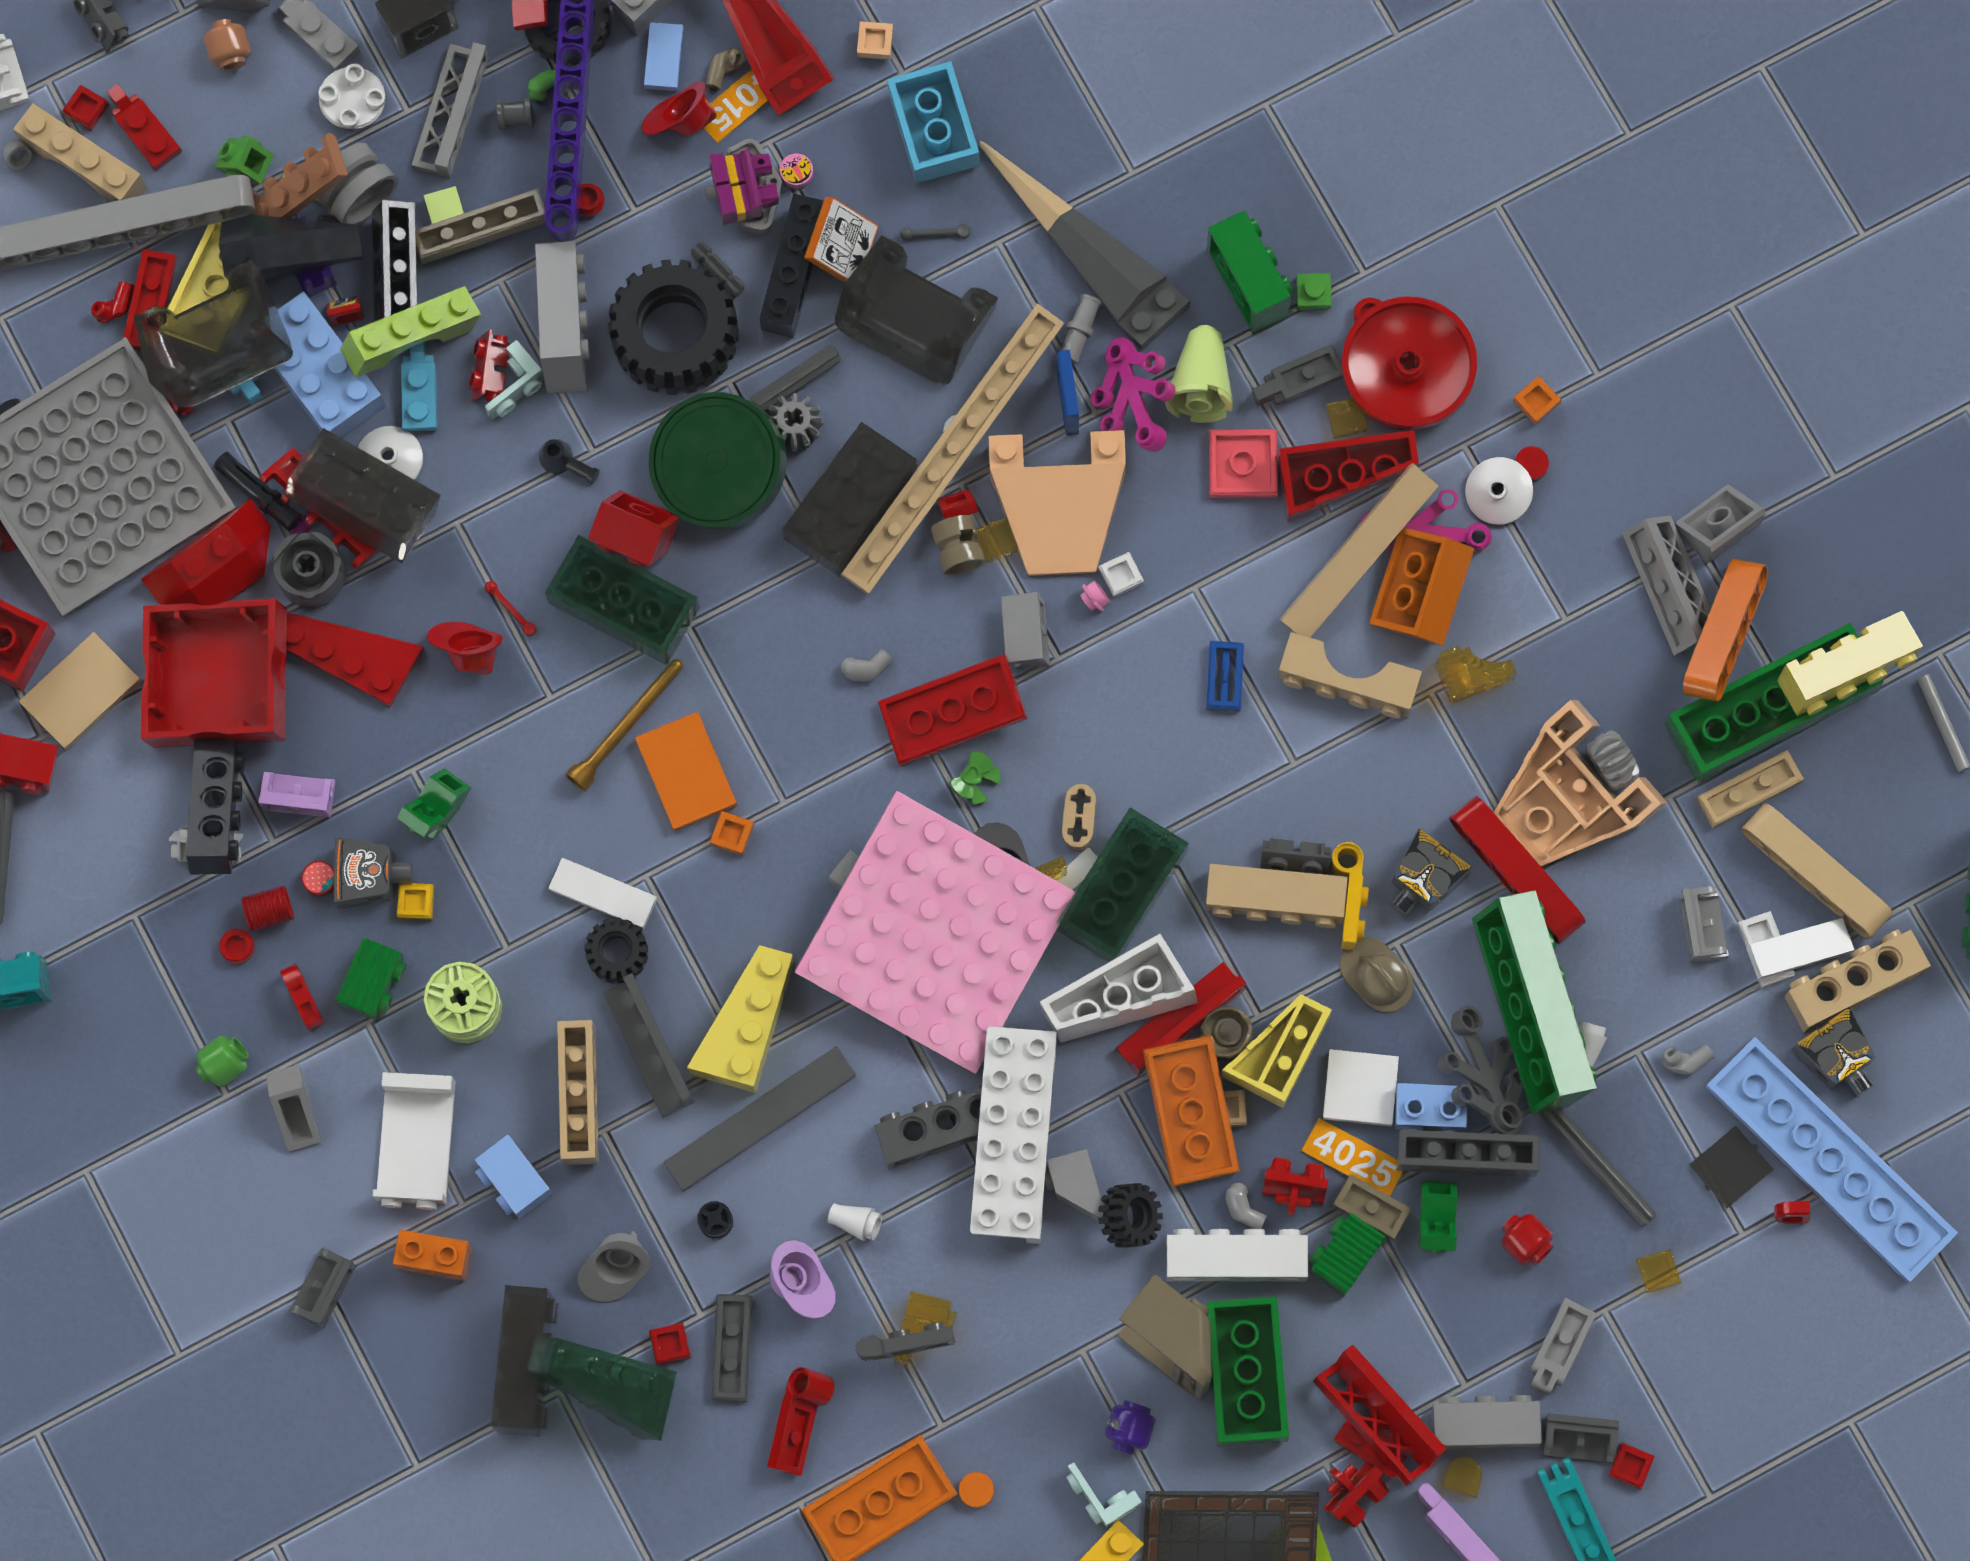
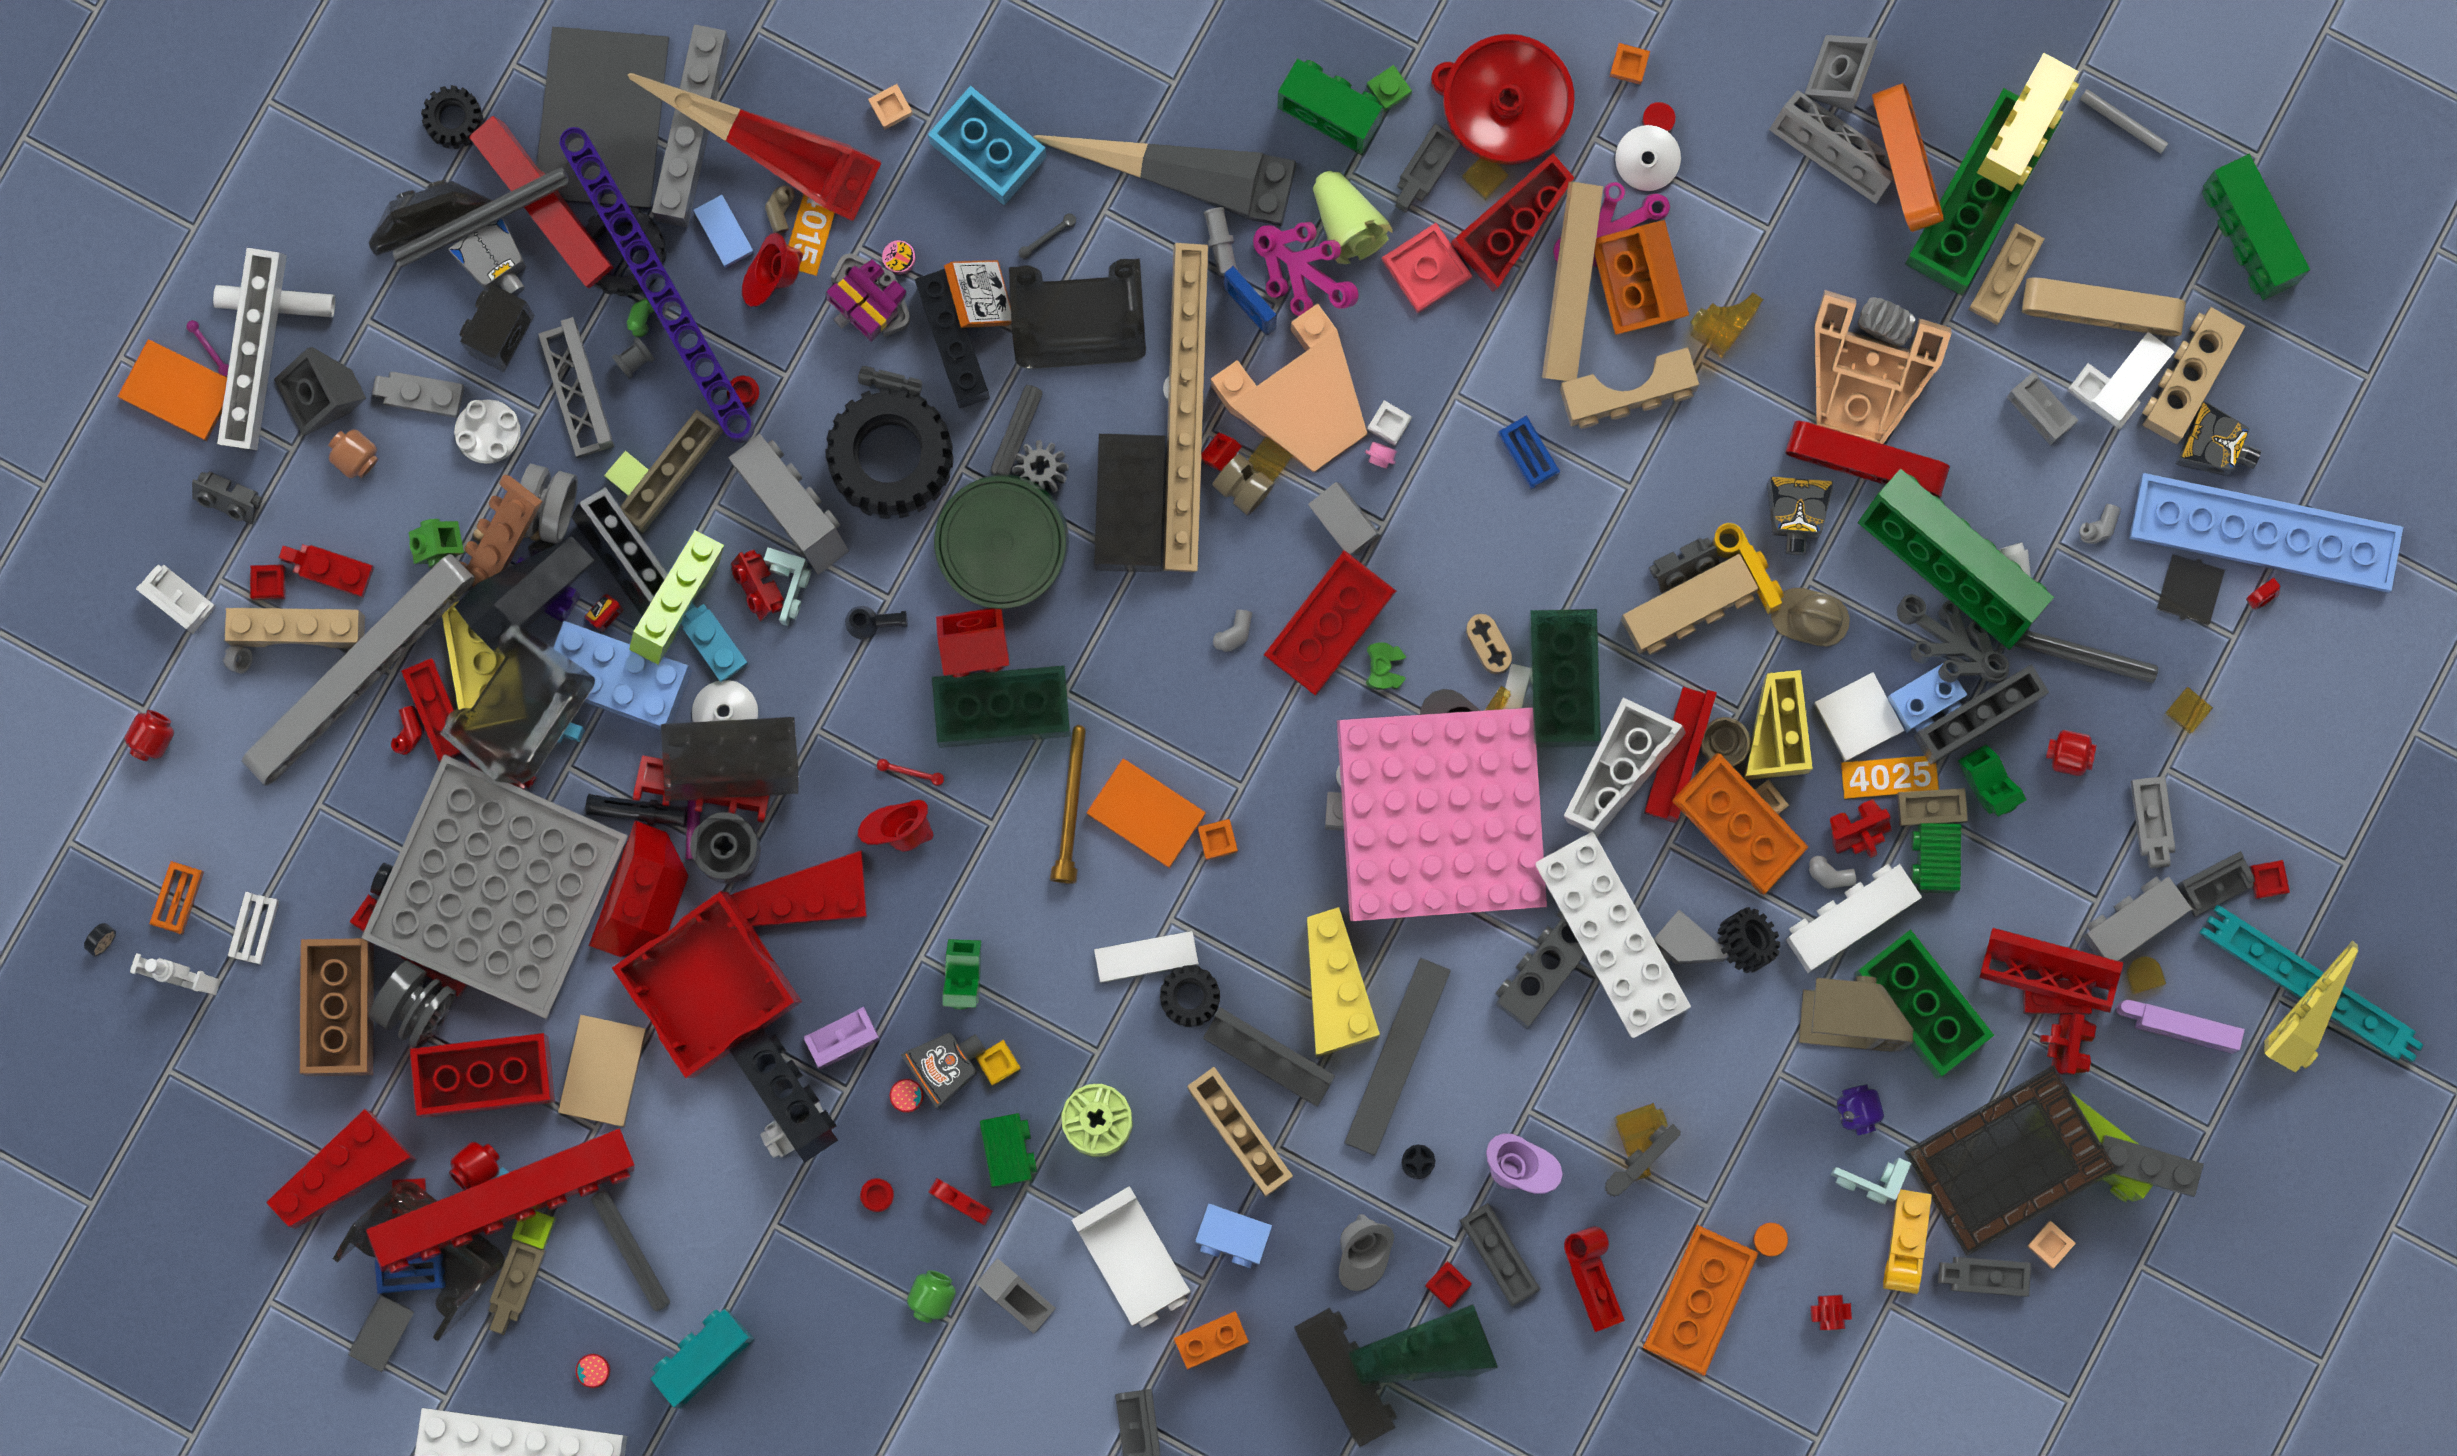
camera: 35 degrees left, 5 degrees up
(267, 908) = (882, 1148): red piece -> none
(857, 1221) = (1531, 1088): white cone -> none

